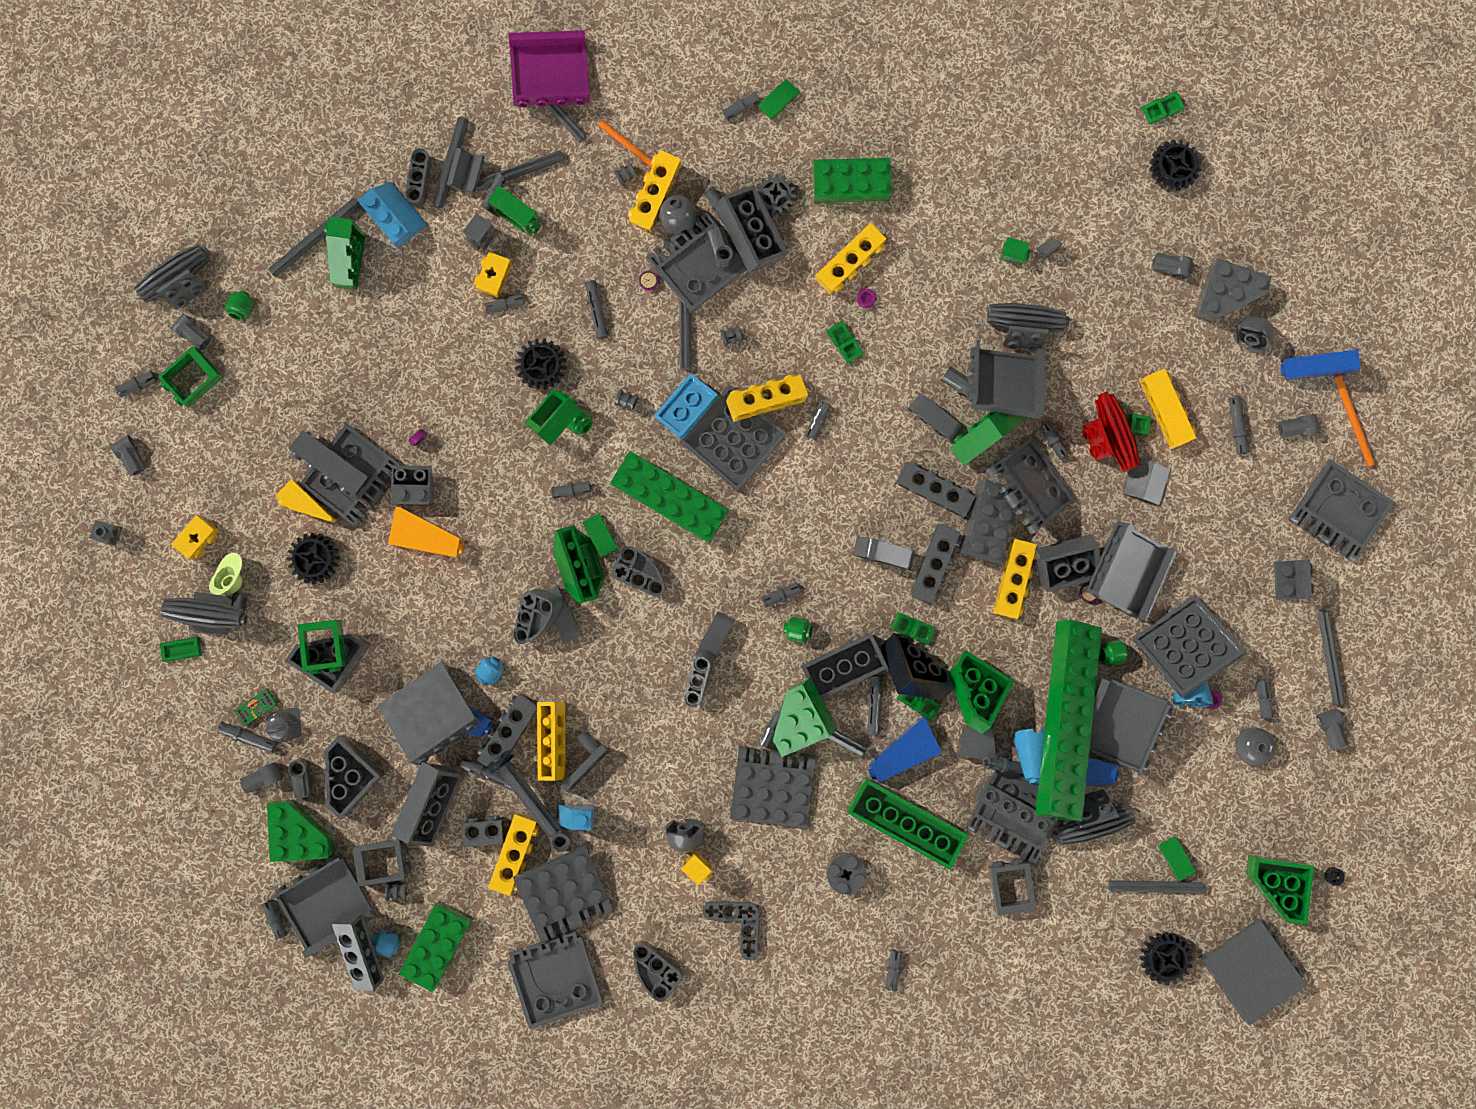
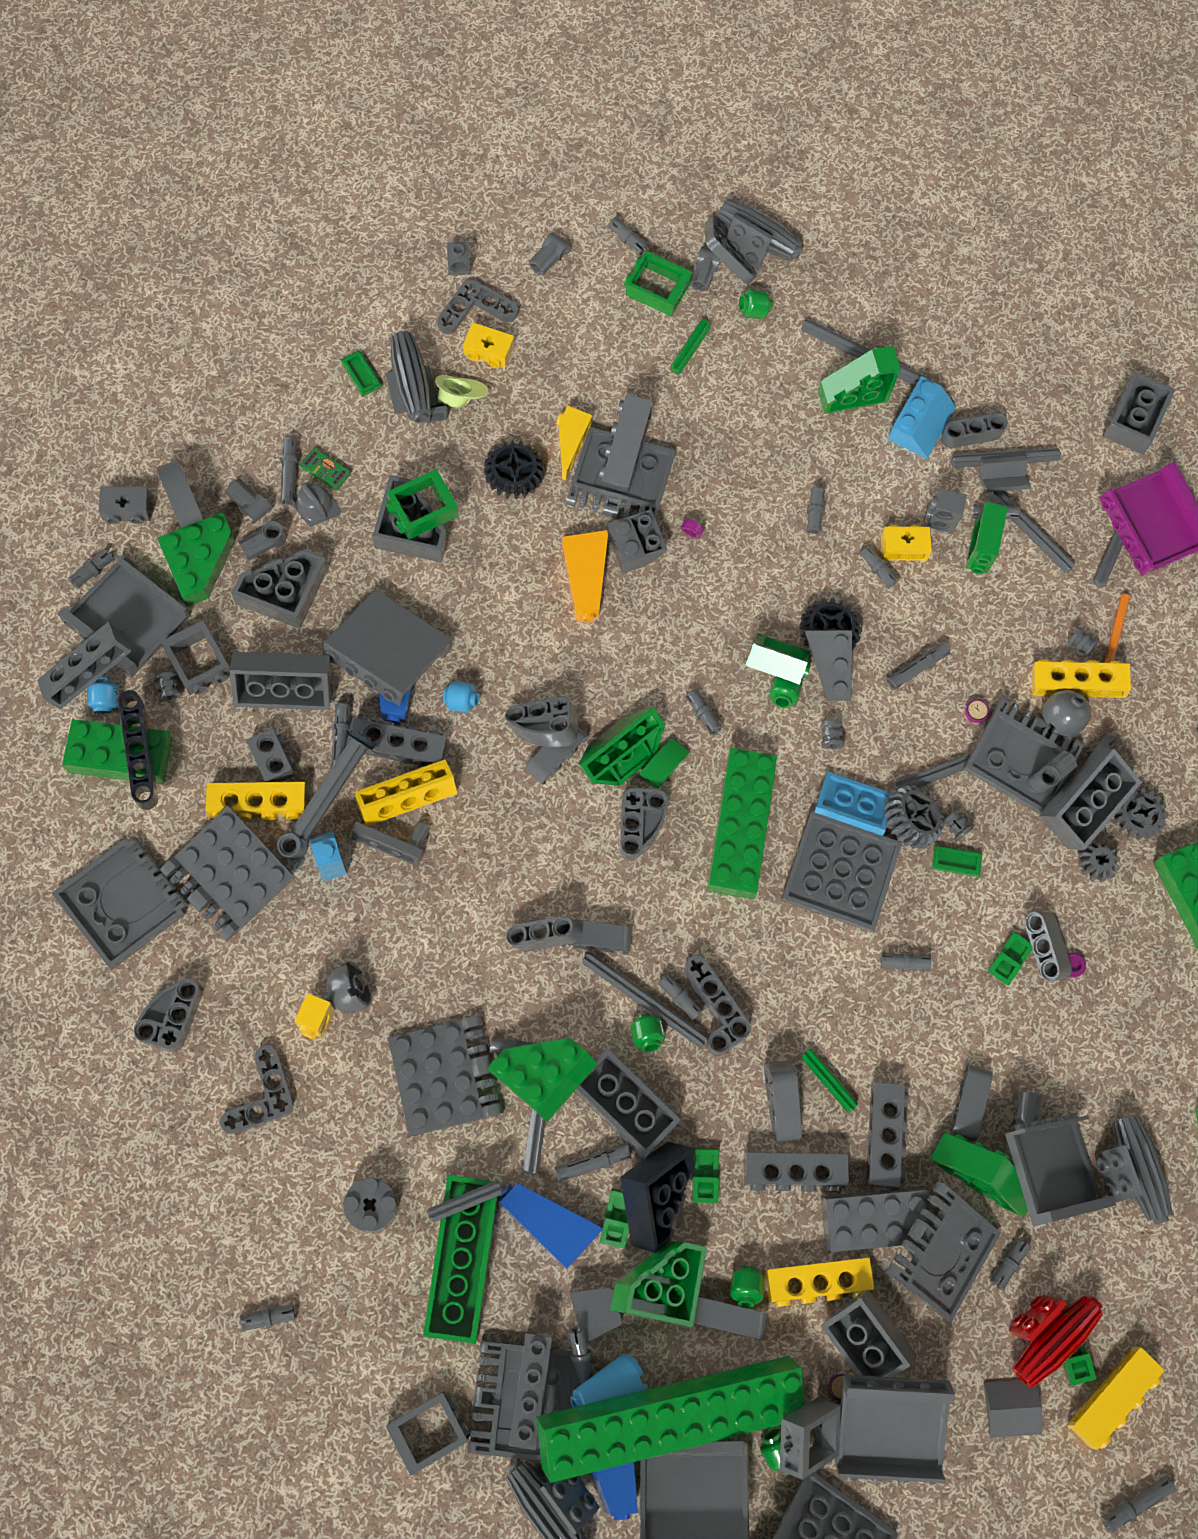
camera: 60 degrees right, 15 degrees down
(148, 530) = (477, 298): none -> dark grey beam
(178, 315) = (717, 242): none -> dark grey beam
(220, 882) = (124, 504): none -> dark grey brick
(238, 832) = (179, 493): none -> dark grey beam
(257, 373) = (690, 346): none -> green axle
(435, 933) = (132, 740): none -> black beam
(438, 333) = (815, 510): none -> dark grey pin
(454, 38) = (1139, 413): none -> dark grey brick
(569, 375) = (833, 661): none -> dark grey wing
(714, 367) = (913, 817): none -> dark grey gear
(741, 410) = (893, 885): yellow brick -> none
(757, 348) = (956, 861): none -> green tile
(772, 622) = (644, 999): none -> dark grey axle
(794, 573) = (712, 1001): none -> dark grey beam
(806, 245) = (1098, 871): none -> dark grey gear
(834, 310) = (1057, 953): none -> dark grey beam
(869, 235) = (1146, 937): yellow brick -> none
(871, 808) = (464, 1201): none -> dark grey axle
(880, 512) = (829, 1080): none -> green axle
(1000, 631) = (747, 1286): none -> green head
(1017, 651) = (730, 1318): none -> dark grey beam
(1127, 641) = (800, 1458): none -> dark grey window

